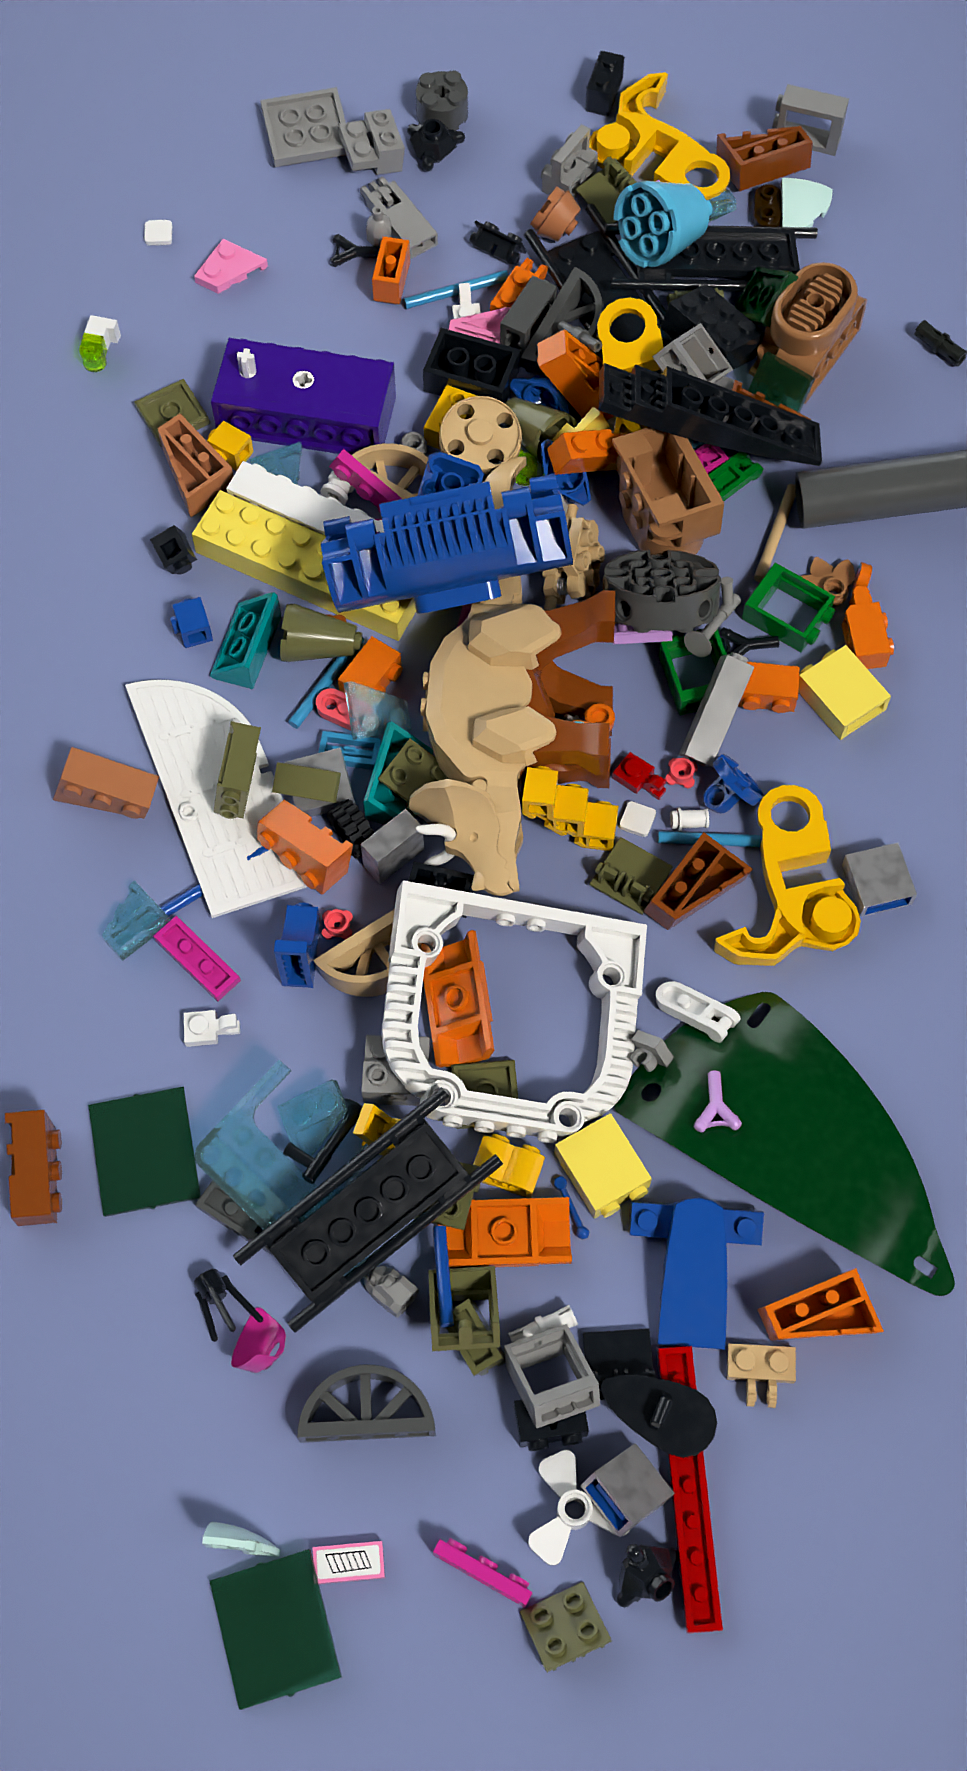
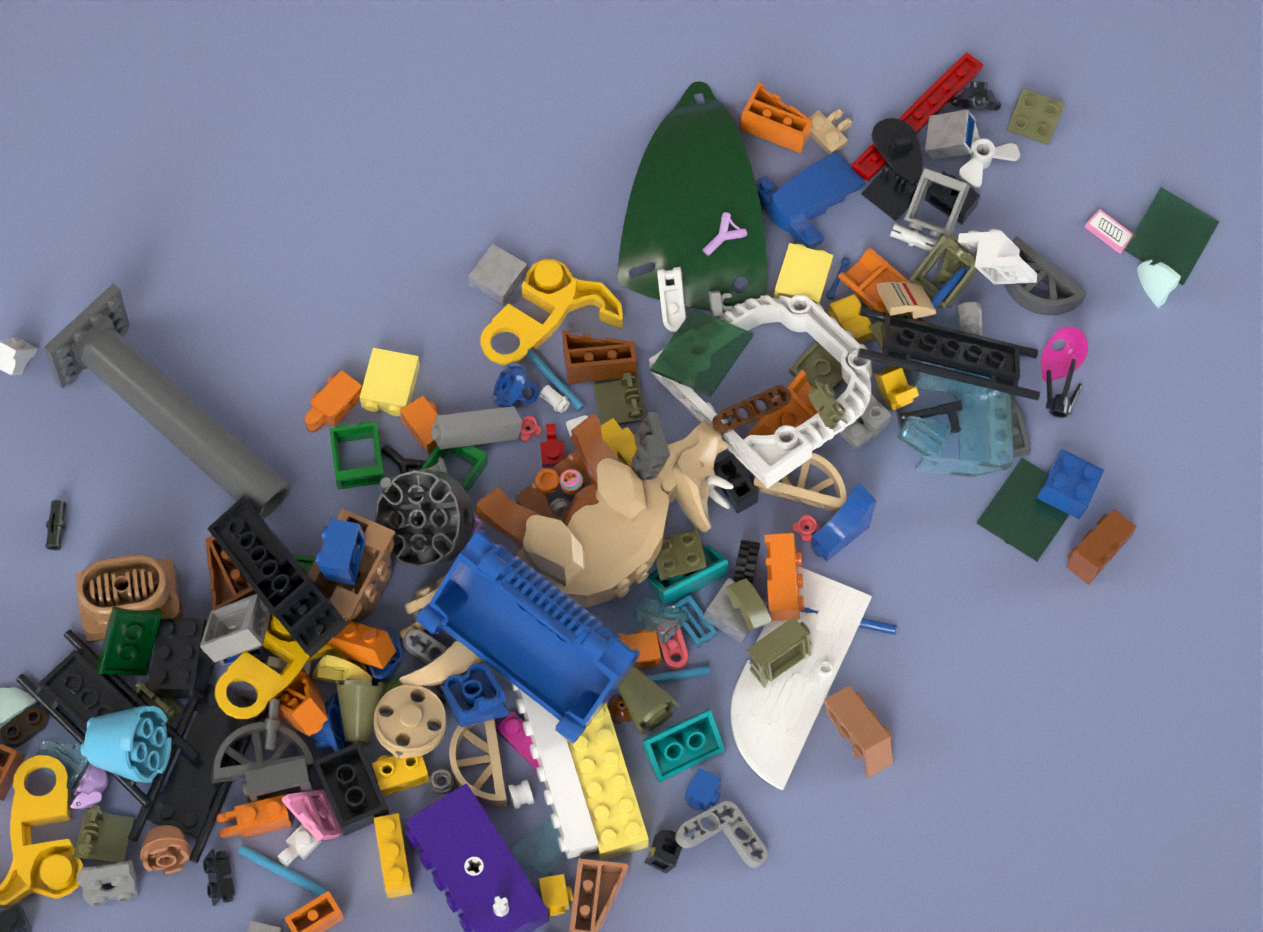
camera: 135 degrees left, 0 degrees up
(120, 1202) = (1070, 483): none -> blue piece
(134, 922) = (918, 634): clear light blue wing -> none
(142, 616) = (728, 825): none -> light grey beam
(197, 958) = (903, 581): dark pink plate -> none
(204, 1027) = (935, 540): white plate -> none
(364, 481) = (508, 765): dark pink plate -> none
(392, 846) = (733, 527): flat silver piece -> none
(407, 364) = (393, 855): none -> yellow brick
(420, 1361) = (997, 257): none -> white bracket
(423, 1007) = (824, 397): none -> olive hinge
(468, 1221) = (904, 298): none -> tan slope
(482, 942) = (752, 409): none -> reddish brown beam
(483, 1571) = (1051, 168): dark pink plate -> none
(516, 771) = (651, 446): none -> dark grey plate
(603, 972) = (701, 352): none -> clear green piece
(673, 452) = (341, 551): none -> blue brick
(775, 533) = (307, 508): tan bar -> none
(781, 382) = (192, 582): clear green plate -> none
(831, 578) = (310, 456): medium nougat plate -> none
(862, 575) = (294, 433): orange tile -> none

